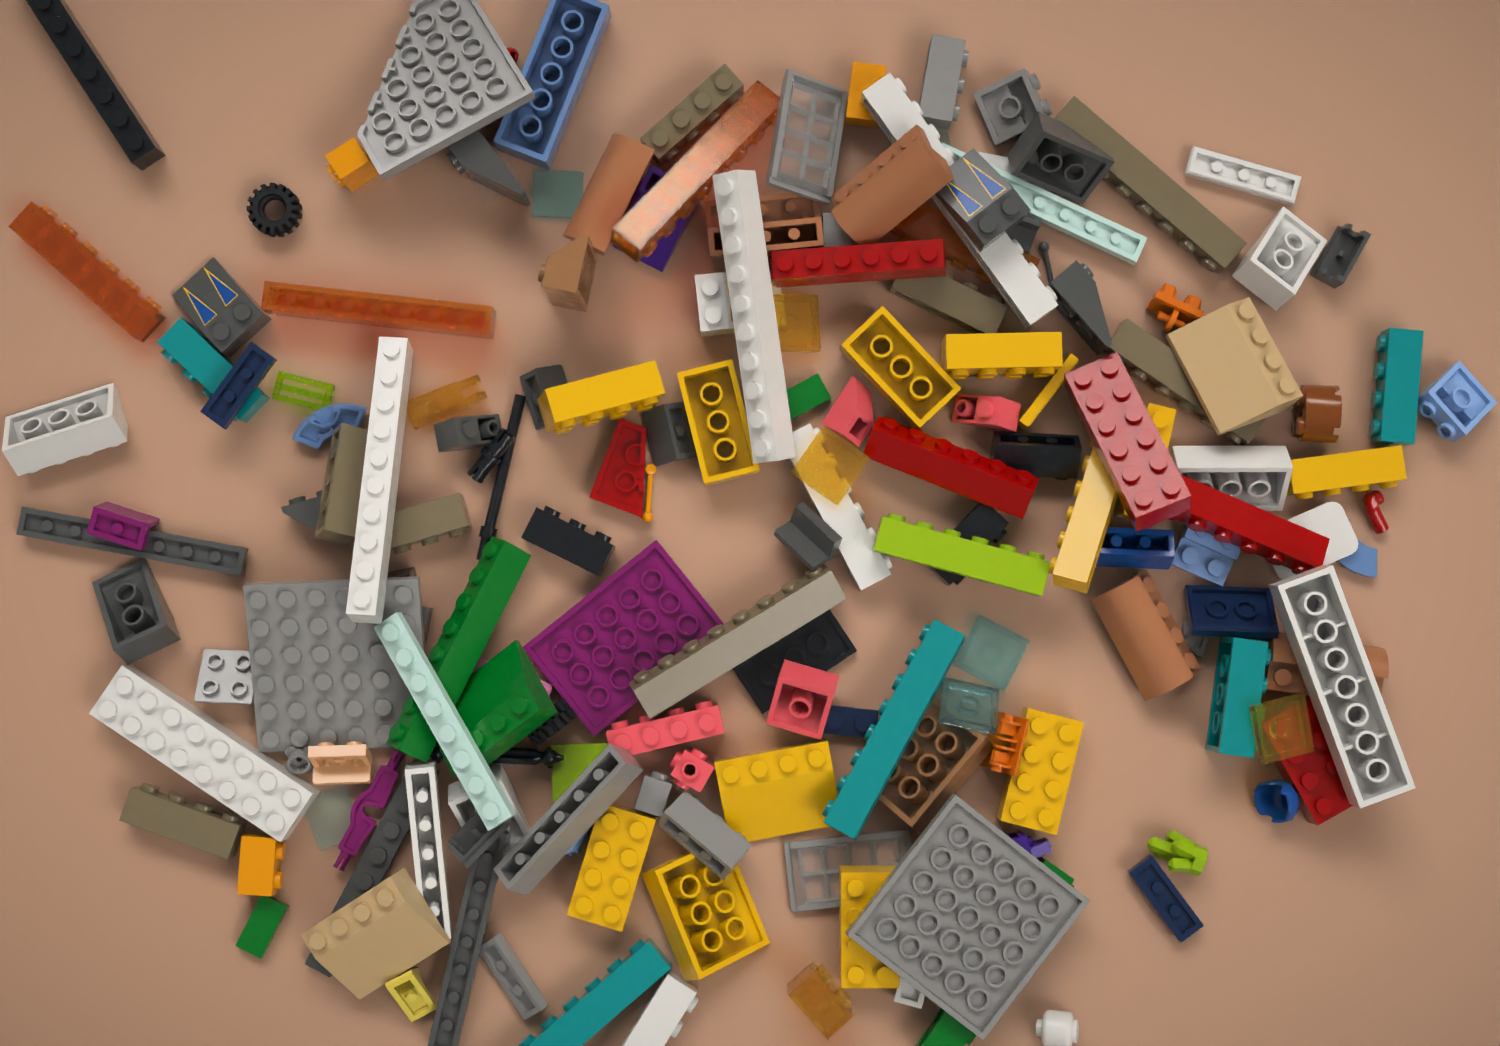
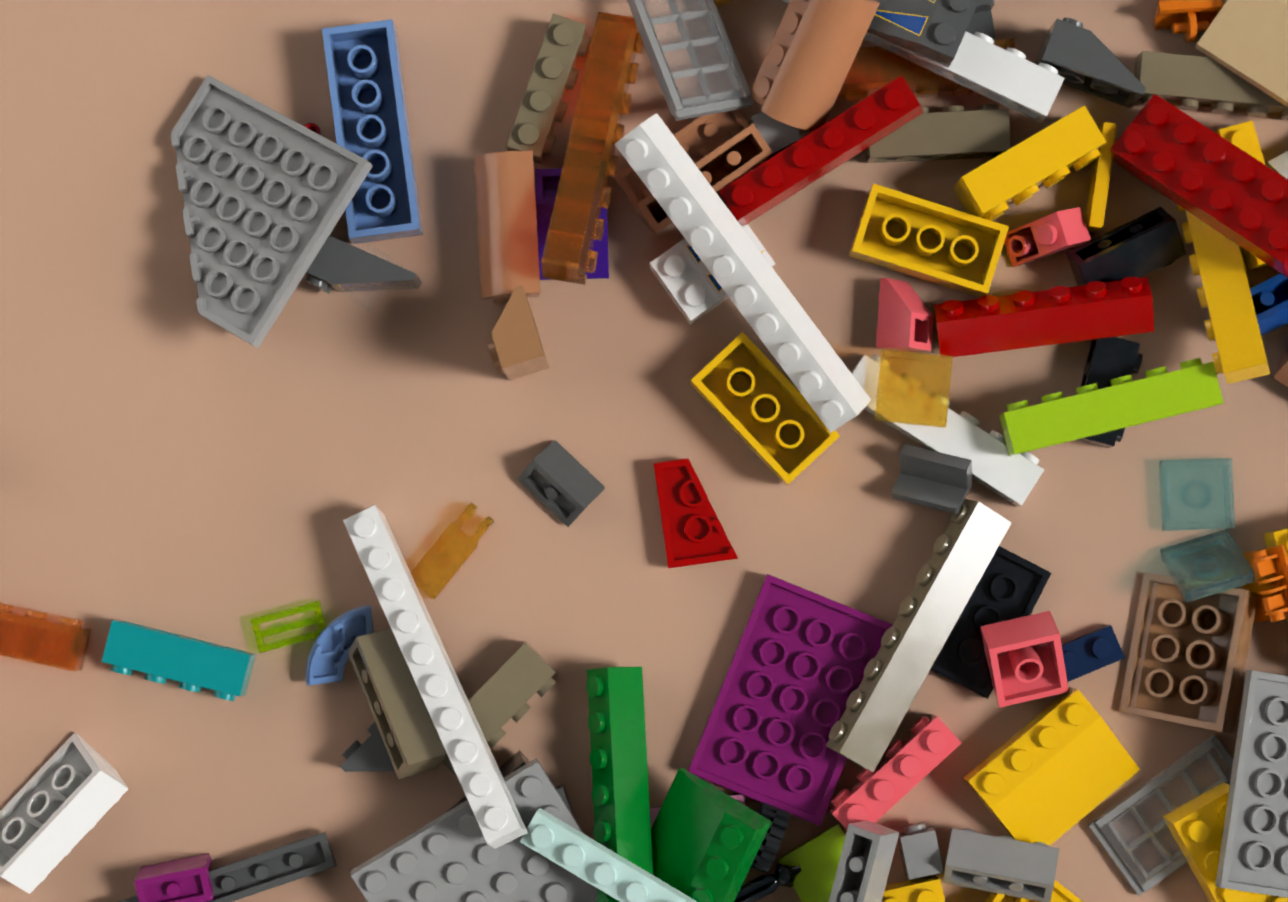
camera: 30 degrees left, 0 degrees up
(221, 308) = (147, 584): dark grey slope -> none
(238, 385) = (220, 659): dark blue plate -> none
(258, 205) = (125, 445): black tyre -> none
(351, 165) = (206, 350): light orange brick -> none
(378, 310) = (324, 491): clear orange brick -> none
(466, 432) = (496, 571): dark grey slope -> none
(488, 529) = (578, 665): black bar -> none
(491, 455) = (536, 581): black pin -> none
(556, 193) = (445, 255): clear light blue piece -> none
(569, 540) = (673, 627): black brick -> none
(601, 396) = (617, 458): yellow brick -> none
(650, 469) = (716, 501): light orange hinge -> none
(669, 433) = (715, 451): dark grey panel -> none
(698, 760) = (959, 806): coral brick -> none
(798, 322) = (789, 250): clear yellow tile -> none
(806, 396) = (843, 325): green tile -> none
(894, 729) = (1142, 636): teal brick -> none
(1044, 247) = (1008, 23): dark grey hinge -> none

